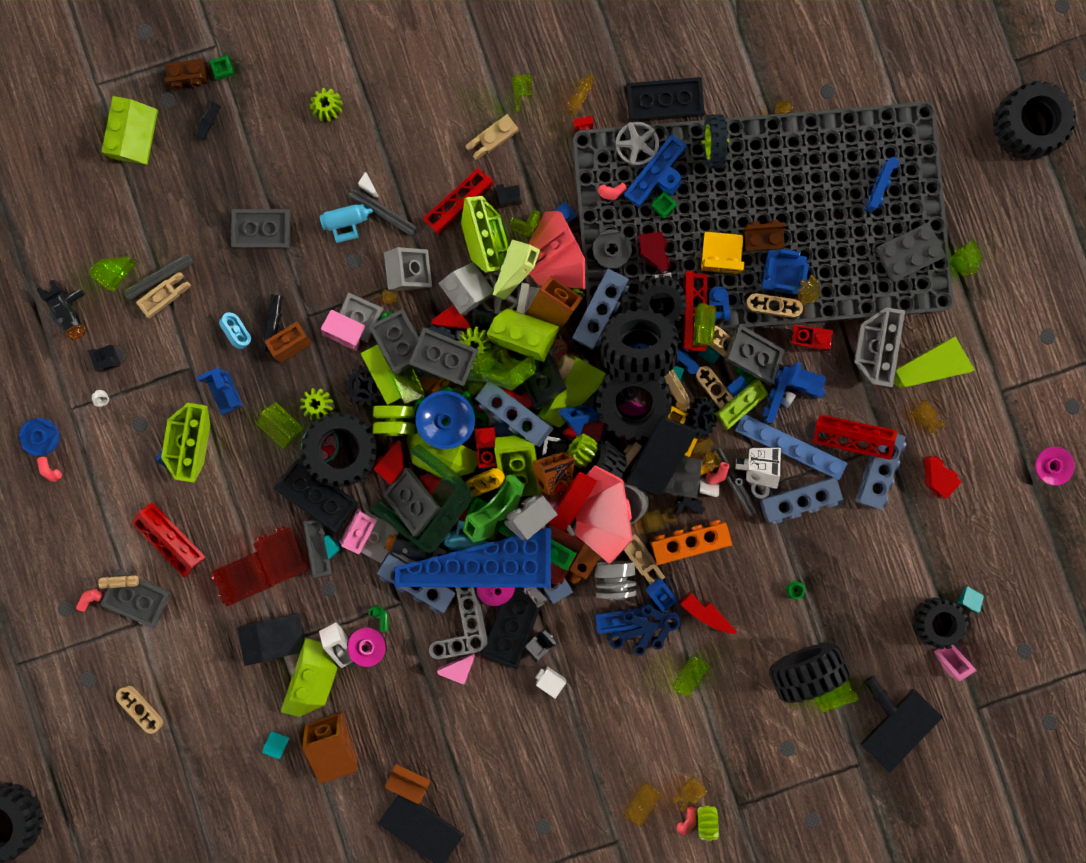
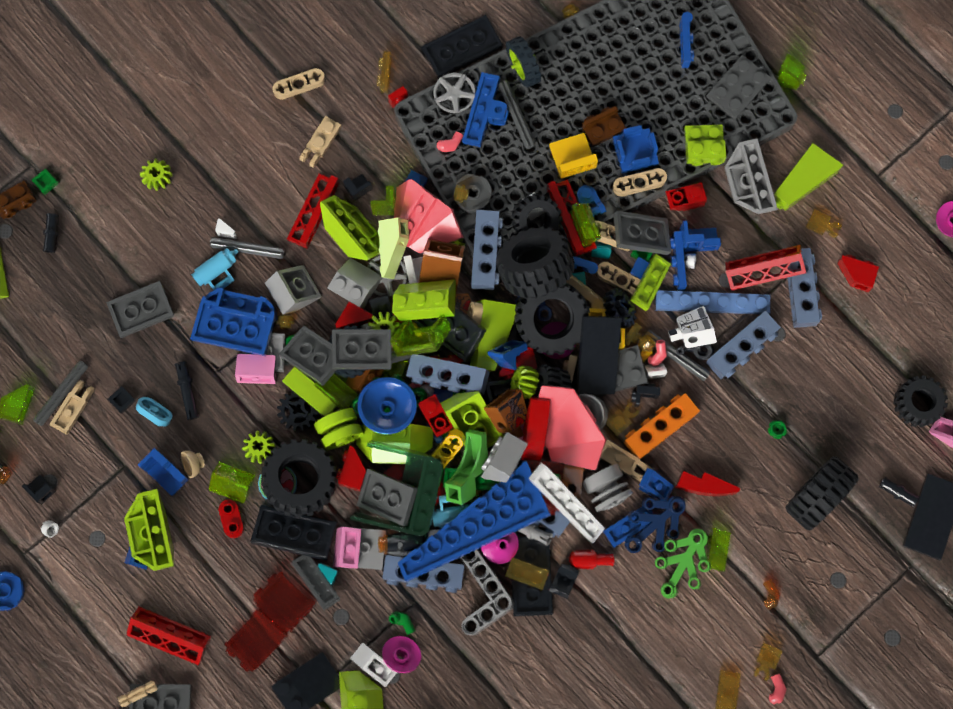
camera: 25 degrees left, 10 degrees down
(46, 472) = (23, 620): coral arm -> none
(210, 307) = (121, 400): none -> black plate
(250, 393) = (192, 463): none -> tan piece
(268, 459) = (231, 518): none -> red plate
(288, 342) = (209, 400): dark orange panel -> none
(341, 278) = (234, 321): none -> blue plate
(457, 669) = (498, 637): bright pink slope -> none
(491, 64) = (302, 76): none -> tan beam
(509, 624) = (527, 573): none -> clear yellow plate
(521, 87) = (329, 86): clear neon green panel -> none
(550, 681) = (589, 611): white brick -> none
(569, 581) = (566, 503): none -> white plate
(571, 634) = (589, 559): none -> red arm
(600, 246) = (460, 193): none -> clear yellow plate
(652, 250) = (509, 178): dark red slope -> none
(657, 675) = (685, 561): none -> bright green plant
(663, 205) = (501, 136): green tile -> none
(687, 190) = (516, 114): none -> dark grey axle
(708, 823) = (796, 679): lime gear -> none
(719, 742) = (773, 596): none -> clear orange arm
(810, 291) = (665, 157): clear yellow plate -> none
(836, 698) = (855, 509): clear neon green panel -> none
(852, 295) = (704, 144): none -> lime plate
(971, 599) = (939, 370): slope -> none

